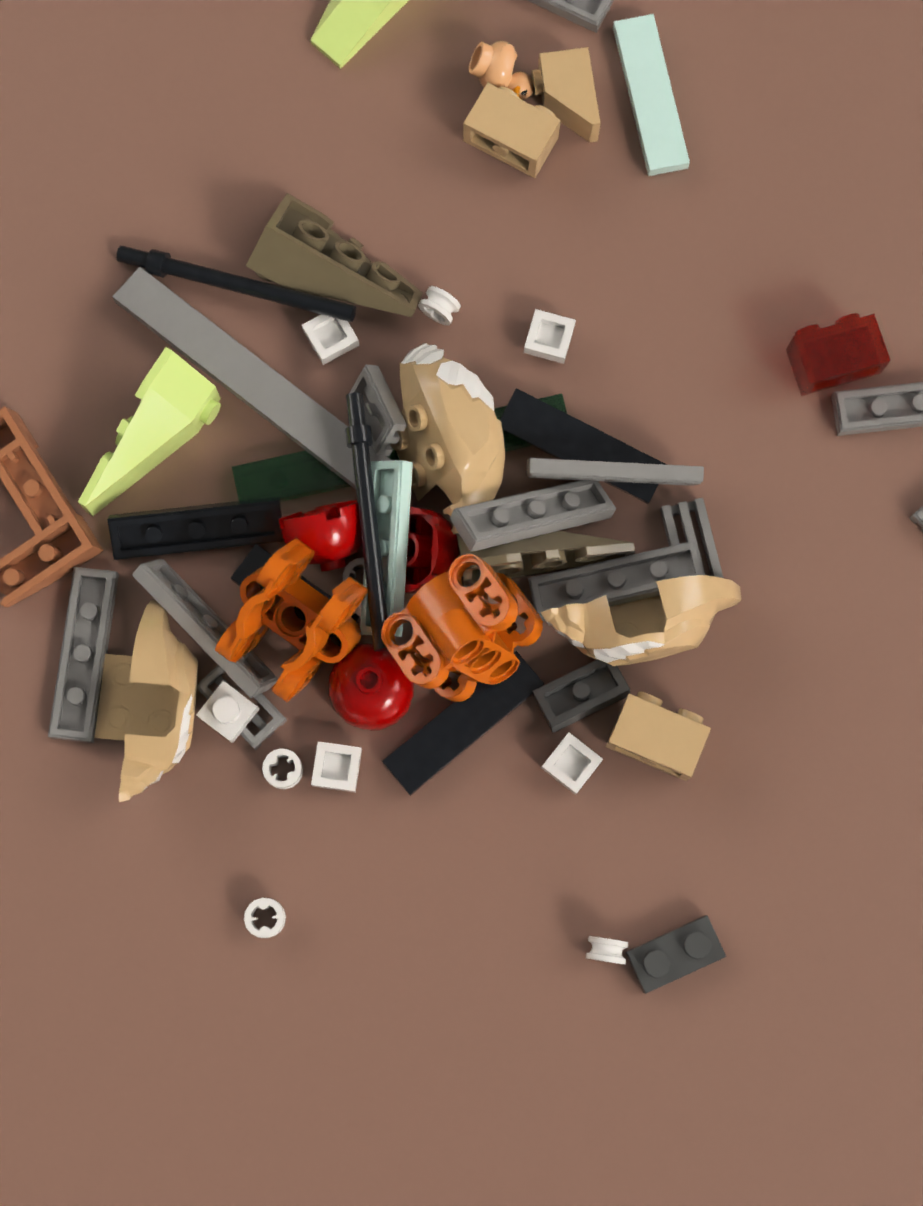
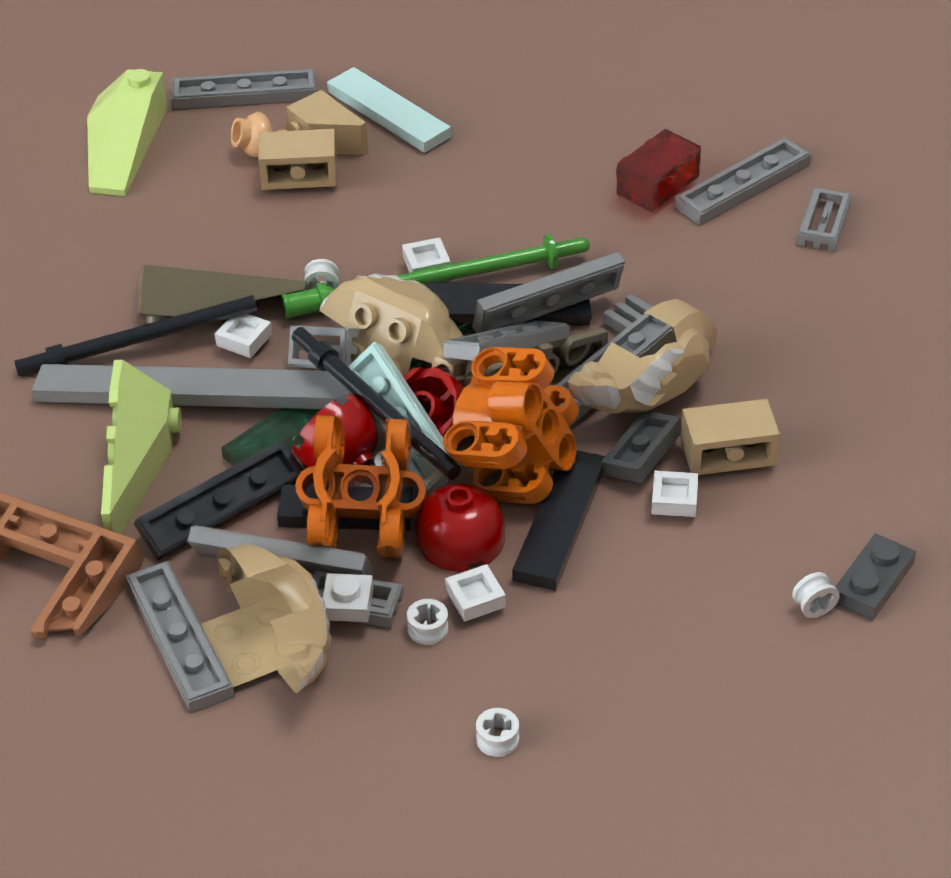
camera: 30 degrees left, 35 degrees down
(429, 331) = (310, 300): none -> bright green bar

